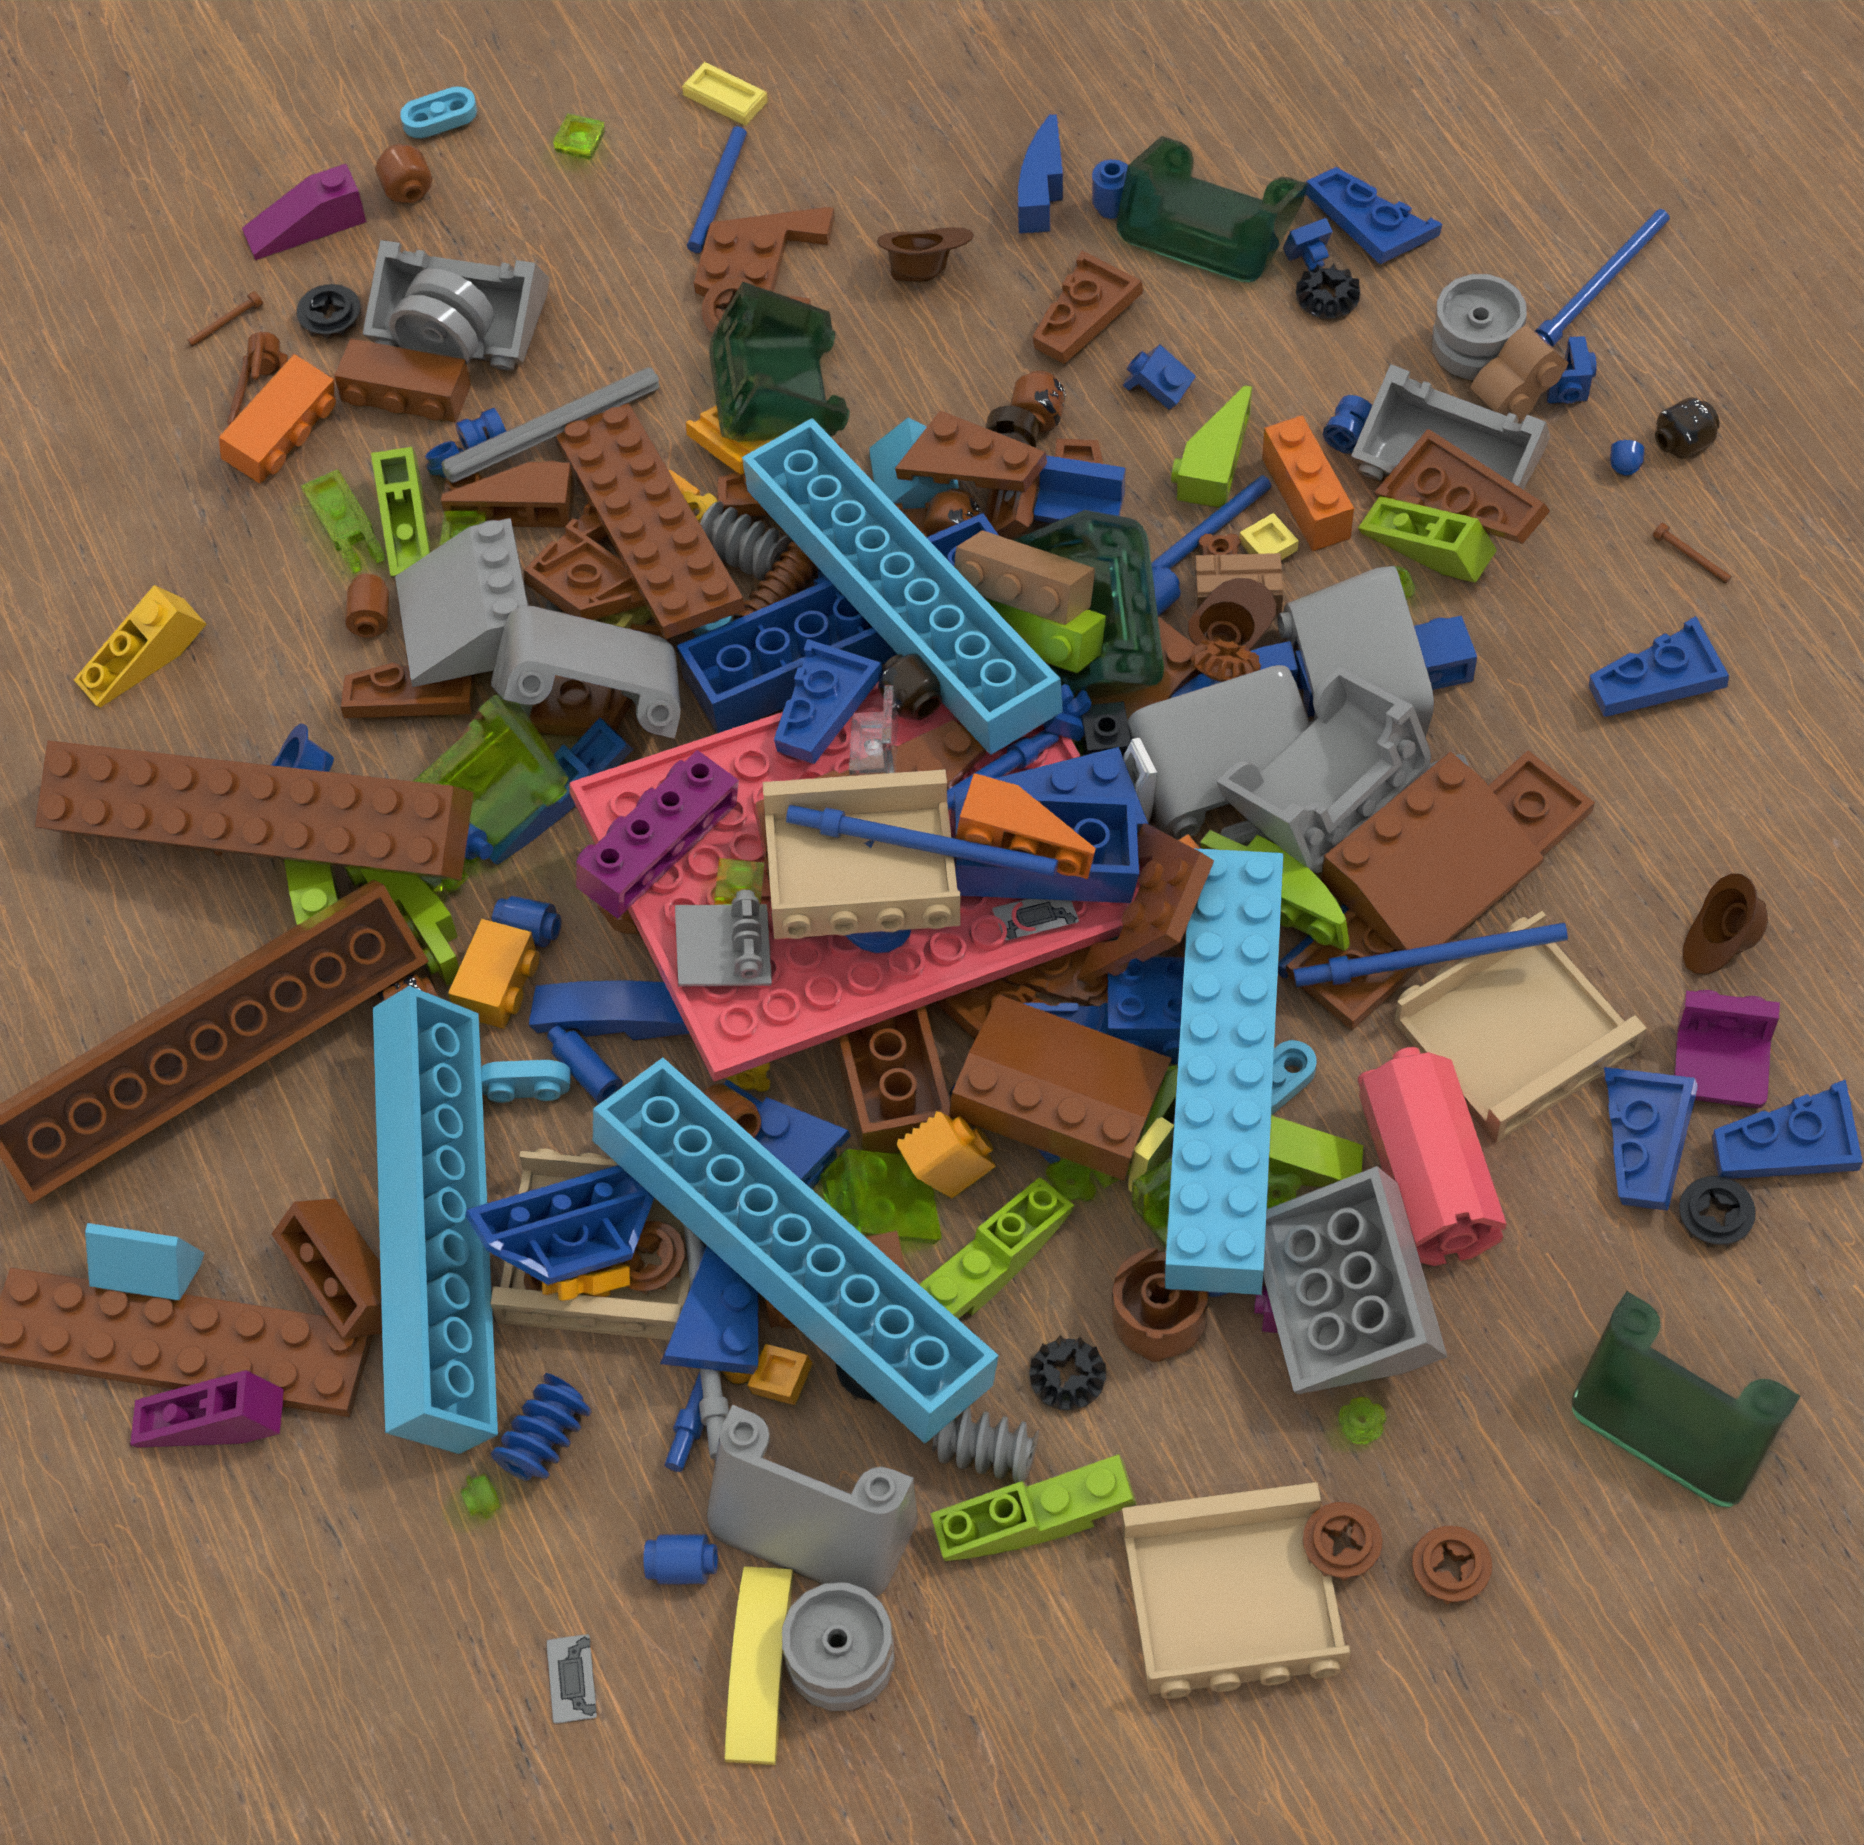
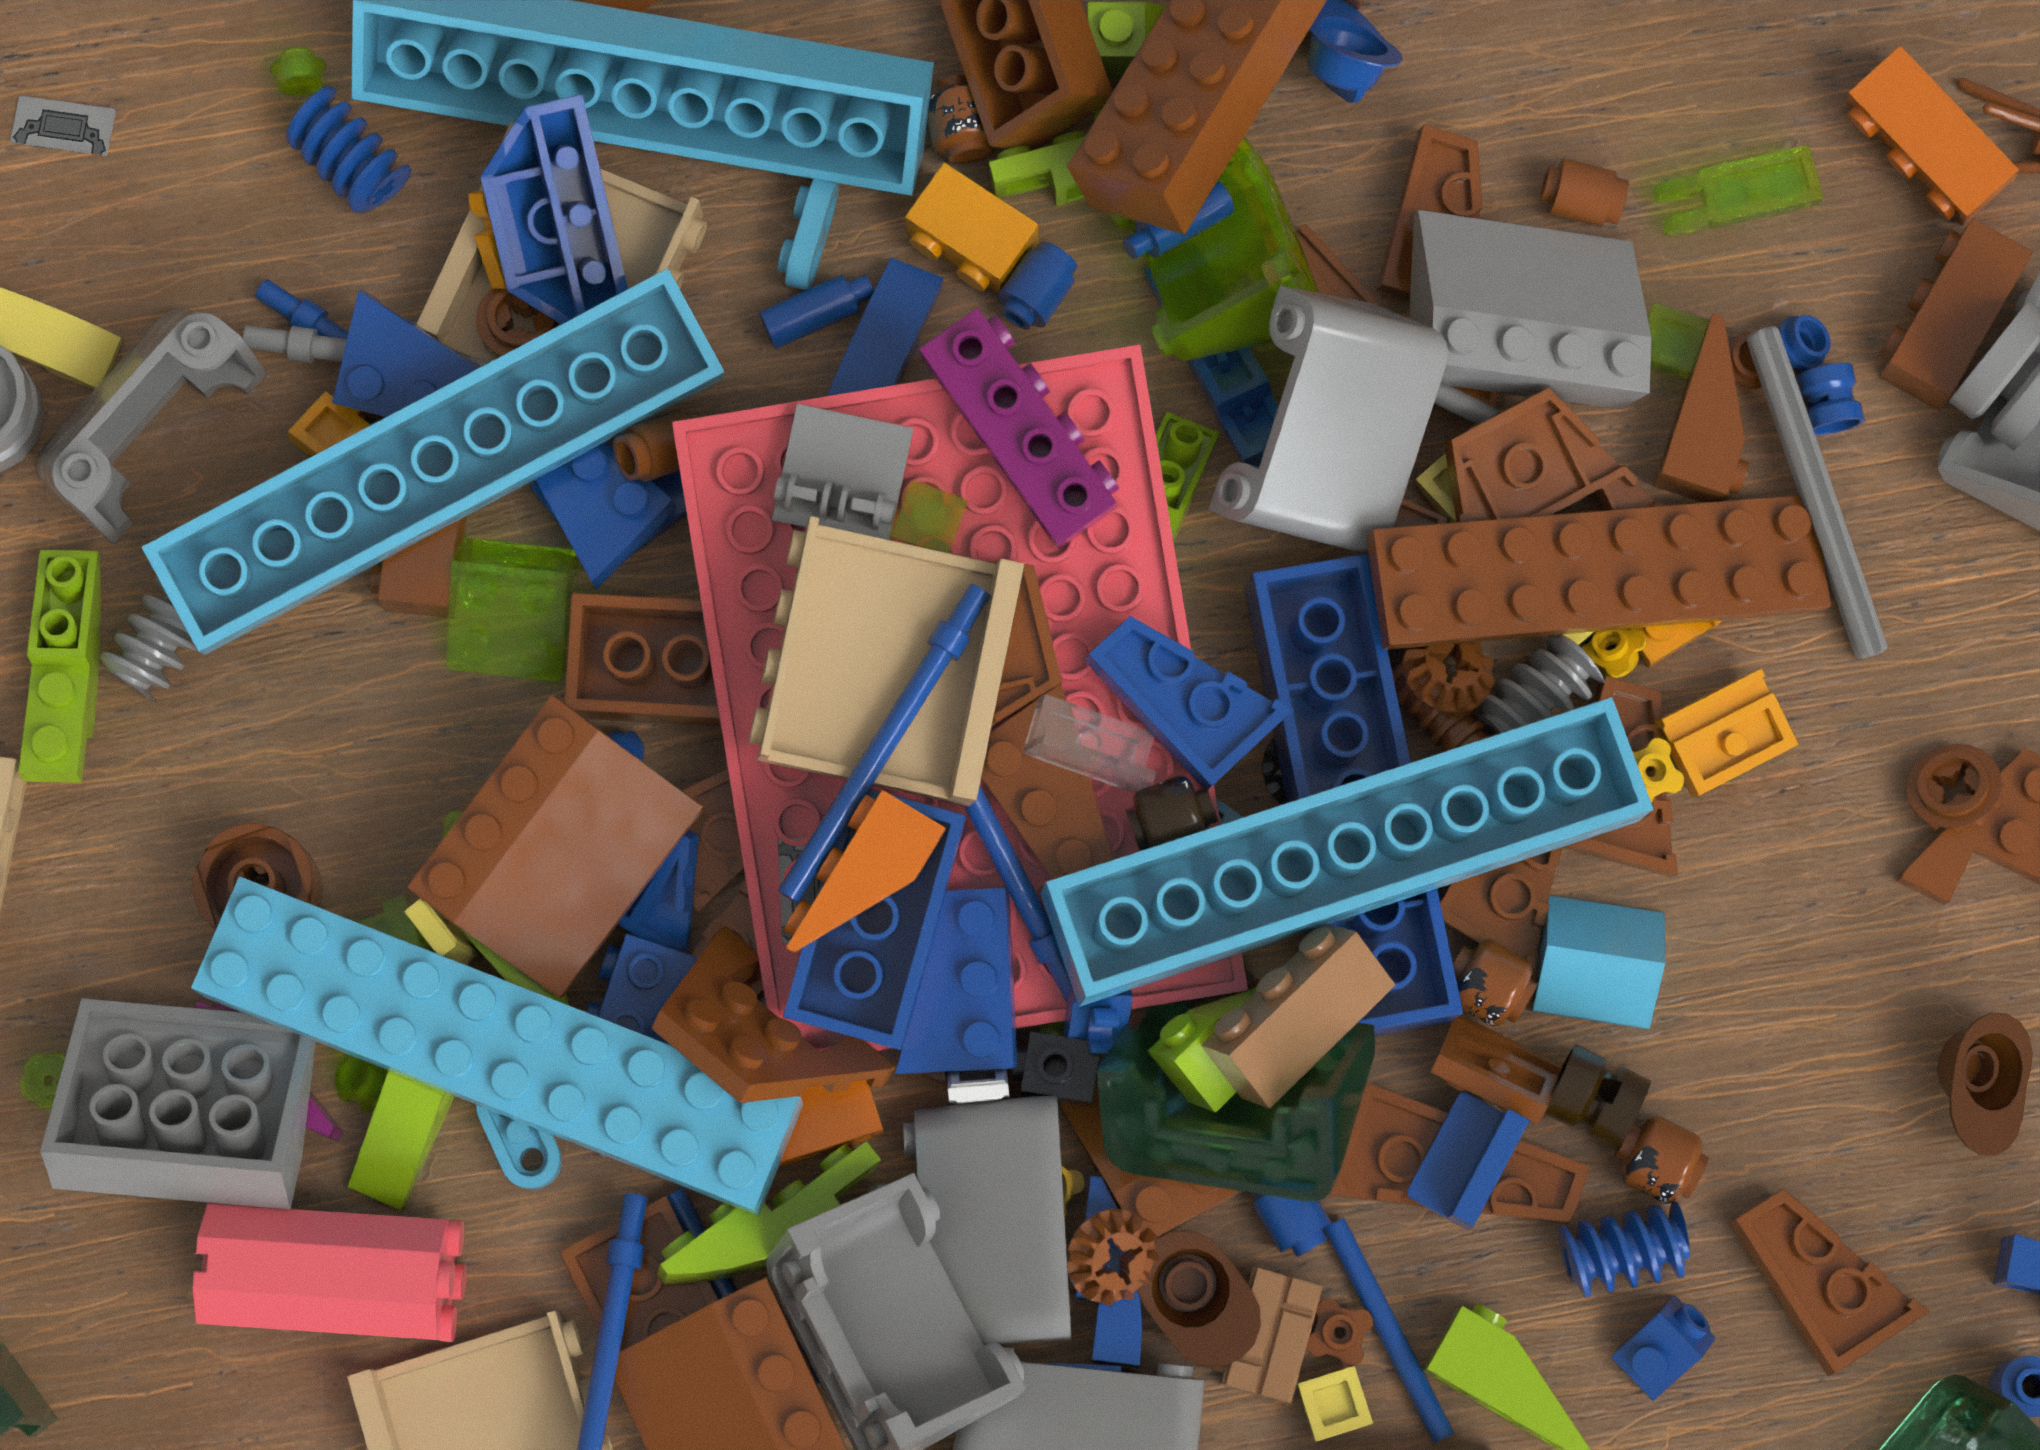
camera: 105 degrees right, 20 degrees up
(401, 507) = (1731, 267): lime slope -> none
(680, 1559) = (145, 266): blue brick -> none
(757, 581) = (1427, 676): none -> dark orange gear
(770, 367) = (1806, 806): clear green windscreen -> none
(947, 1153) = (516, 677): light orange brick -> none
(973, 453) = (1558, 1021): dark orange wing -> none
(999, 1249) = (392, 712): lime slope -> none
(1078, 1390) = (227, 789): black gear -> none
(1104, 406) = (1625, 1250): none -> blue piece

